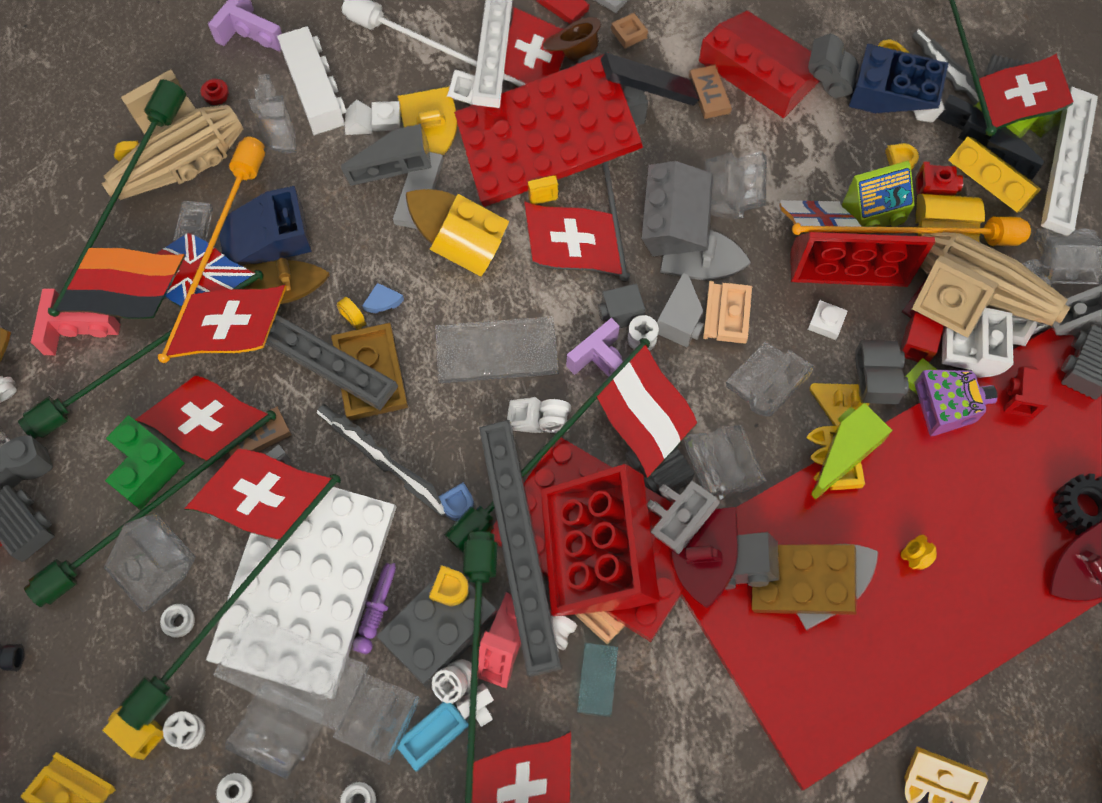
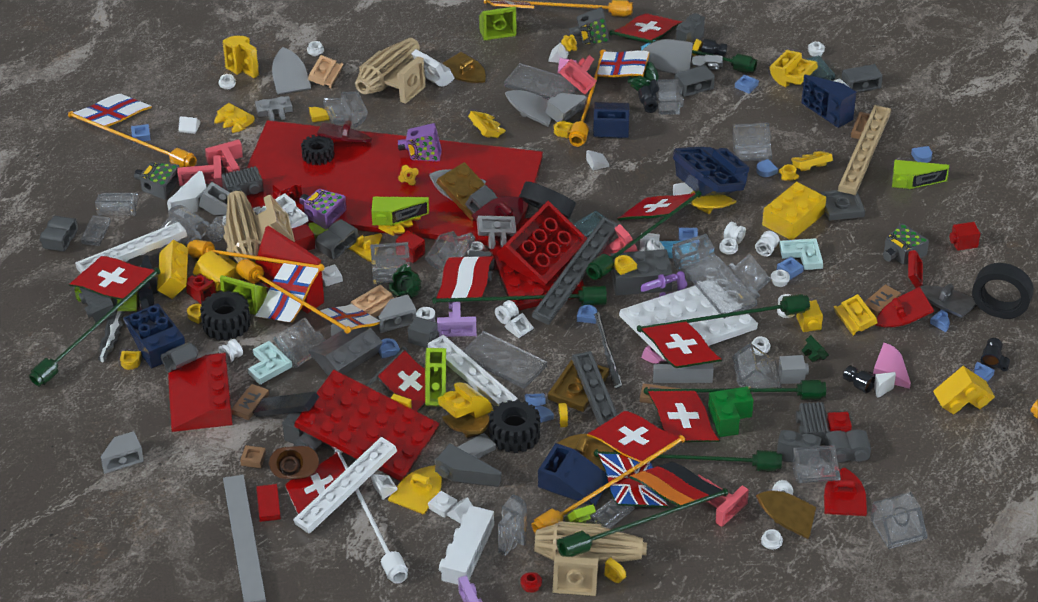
camera: 140 degrees left, 25 degrees down
(88, 670) = (816, 349): none -> dark green tile
(99, 601) = (792, 369): none -> light grey brick
(209, 176) = (580, 515): none -> lime plate
(380, 228) = (514, 426): none -> black tyre
(401, 311) = (535, 399): none -> medium blue tile
(437, 777) = (687, 233): none -> medium blue tile
(510, 294) = (472, 372): none -> white plate
(542, 249) = (435, 375): none -> lime slope
(645, 266) = (388, 348): none -> medium blue tile
(680, 671) = (538, 195): none -> black tyre
(713, 226) = (345, 317): none -> flag
(713, 353) = (405, 282): none -> dark green hair
(739, 141) = (272, 363): none -> light aqua plate
(782, 432) = (415, 243): none -> red brick
(800, 127) = (232, 350): none -> white wheel
(861, 141) = (225, 315): none -> black tyre
(971, 620) = (422, 143): none -> medium lavender torso

